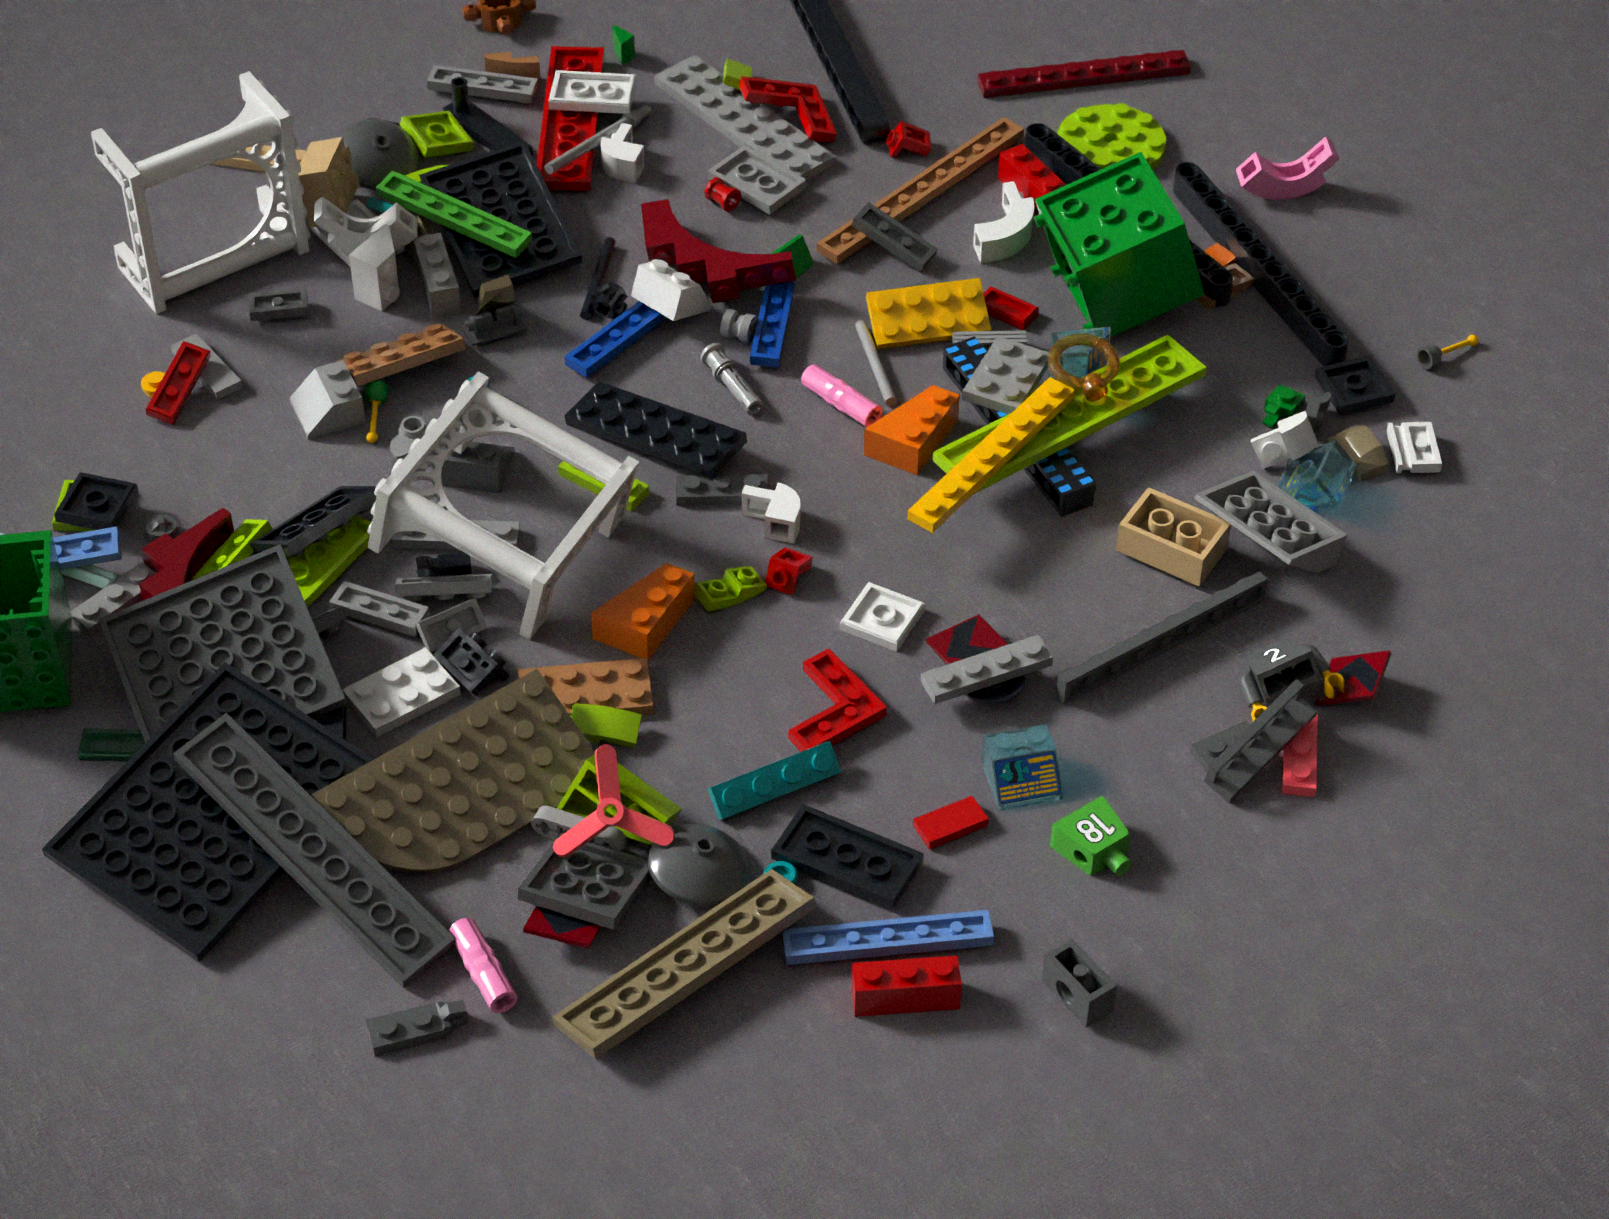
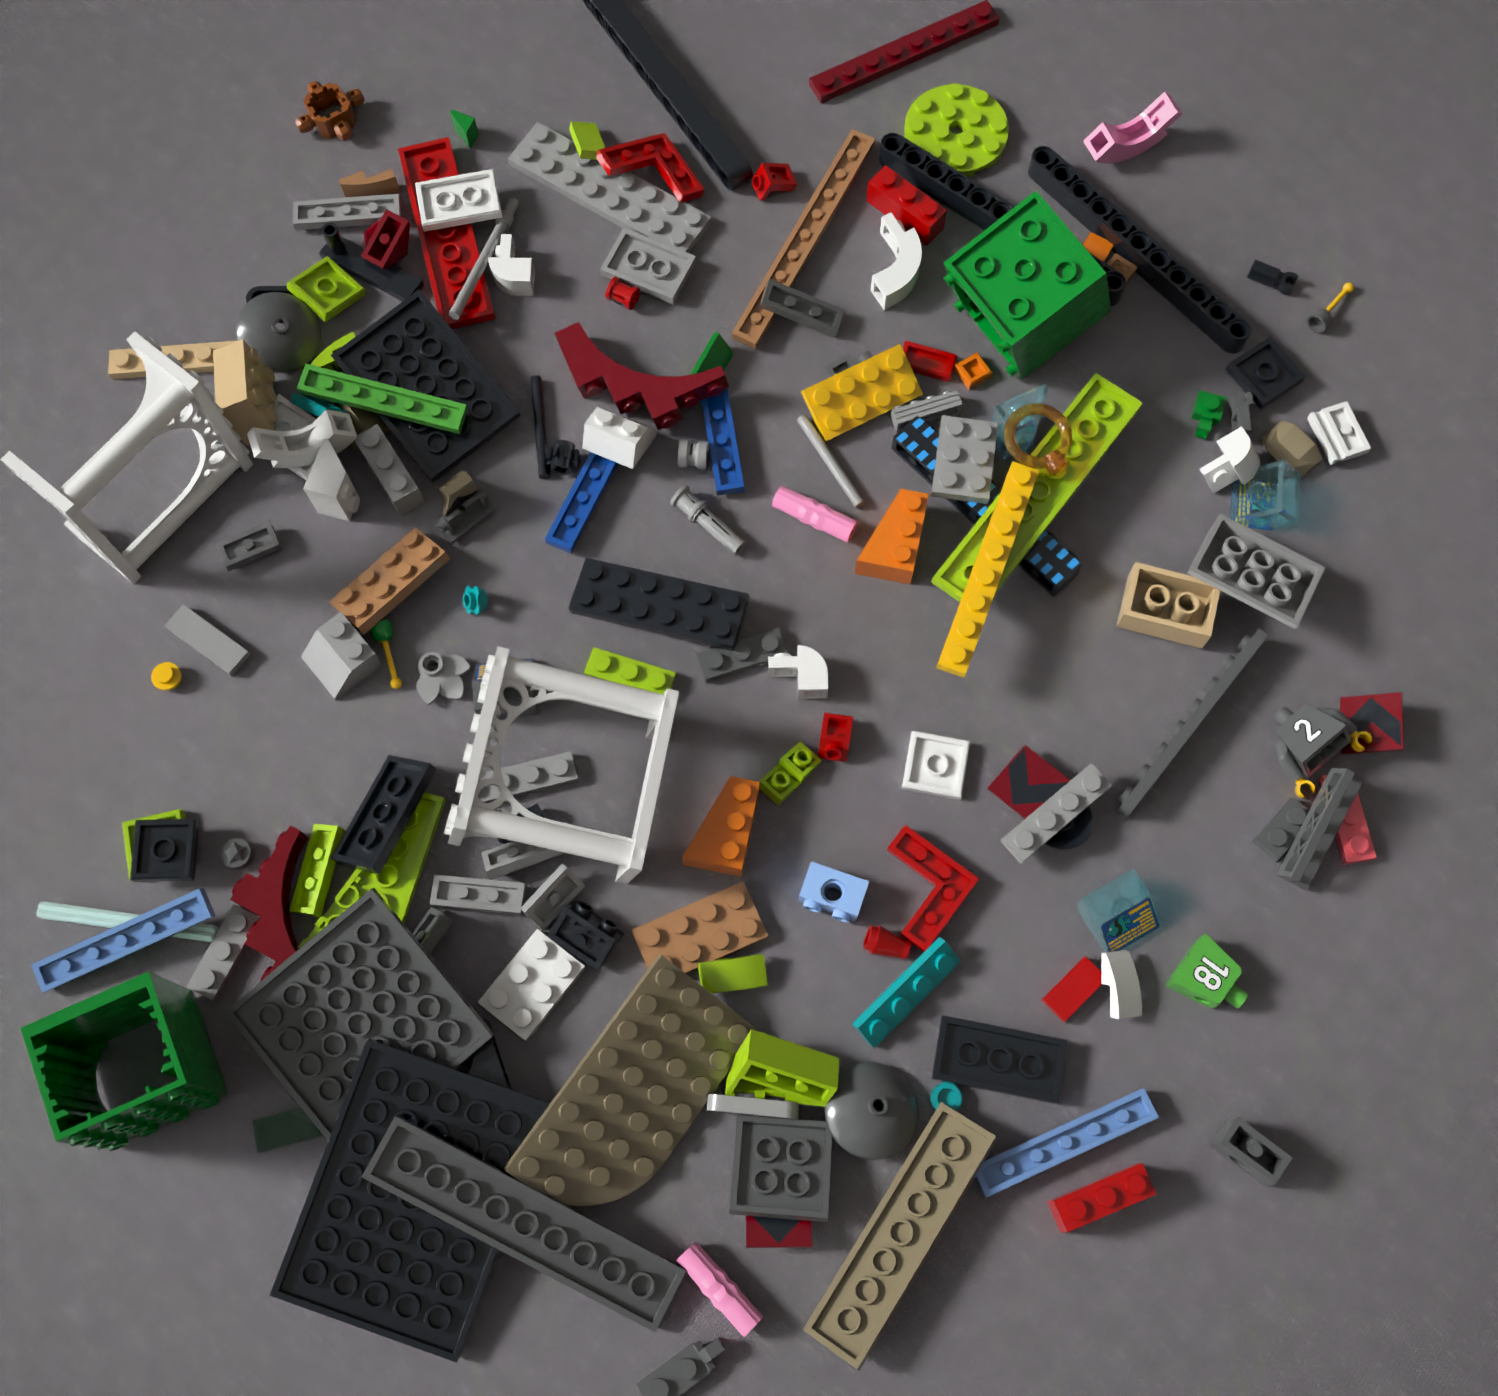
camera: 15 degrees left, 25 degrees up
(178, 382) = (188, 673): red tile -> none
(512, 108) = (386, 240): none -> dark red slope
(610, 797) = (780, 1090): coral piece -> none
(733, 684) = (821, 878): none -> light blue brick
(768, 737) = (885, 943): none -> red cone
(1001, 824) = (1121, 976): none -> white slope
(1049, 323) = (973, 371): none -> orange tile
(1393, 314) = (1272, 277): none -> black bar

